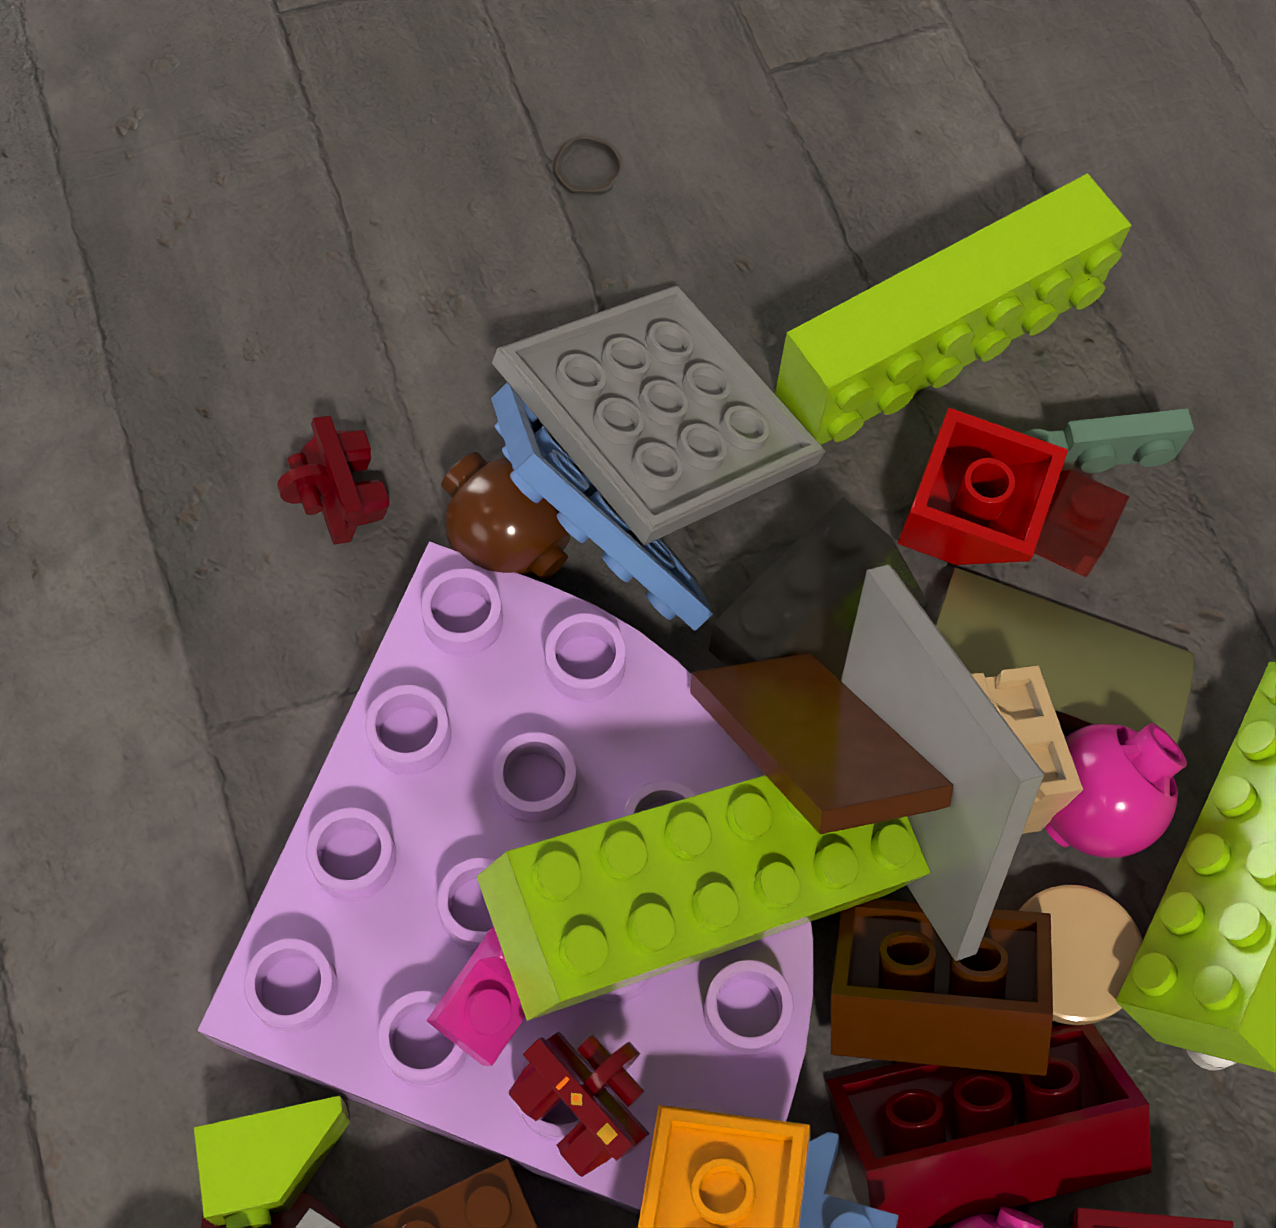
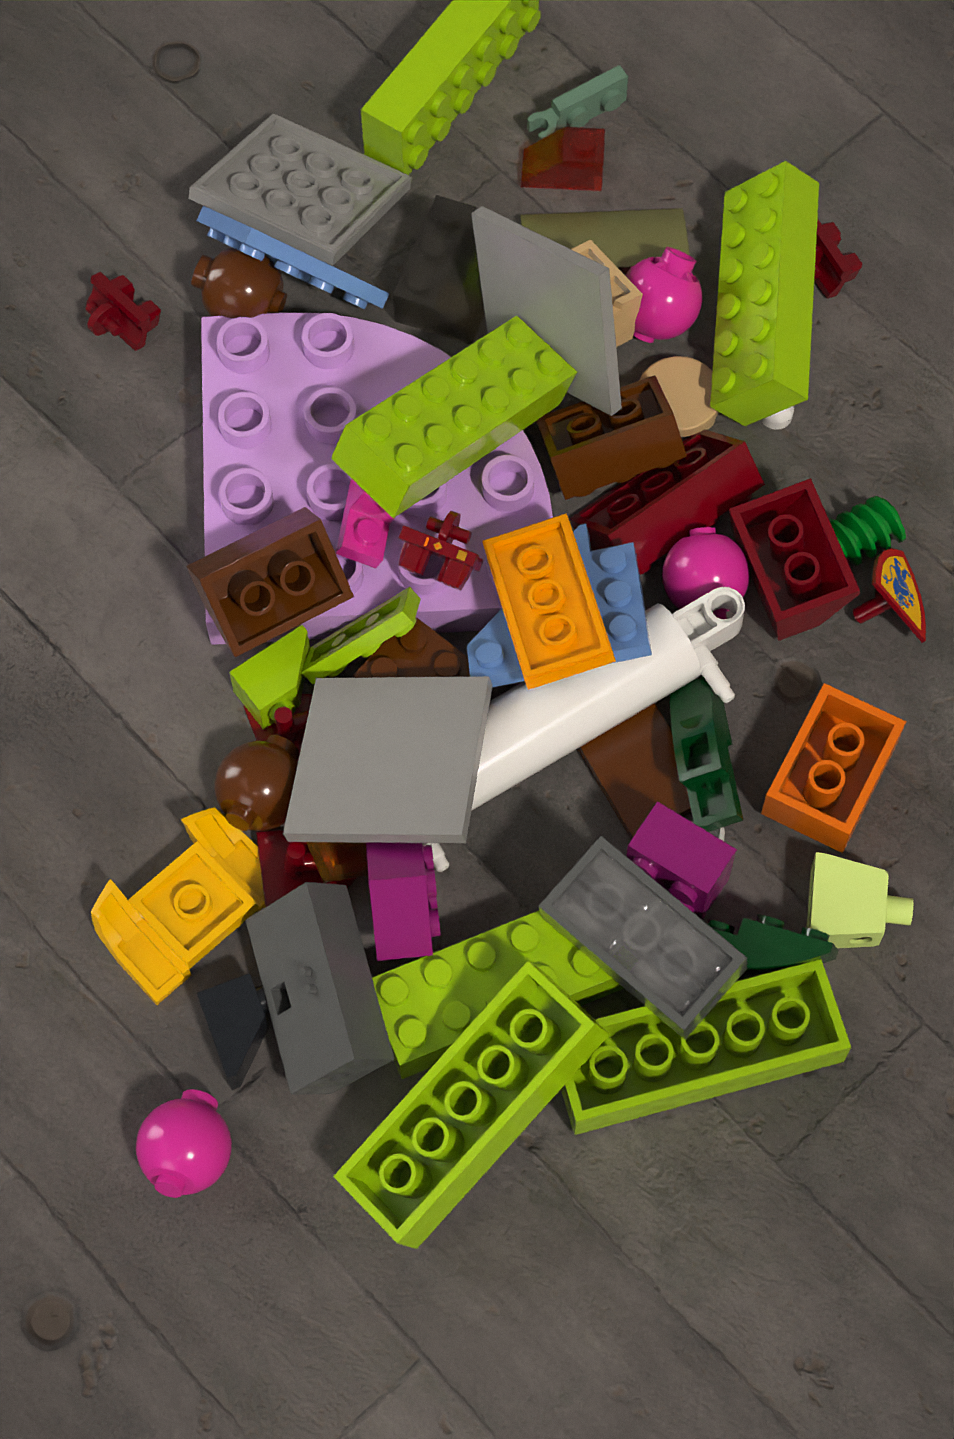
camera: 20 degrees left, 0 degrees up
(299, 1028) = (270, 581): none -> reddish brown slope
(416, 1164) = (362, 636): none -> lime plate
(820, 743) = (483, 322): reddish brown tile -> none
(982, 493) = (517, 161): red slope -> none

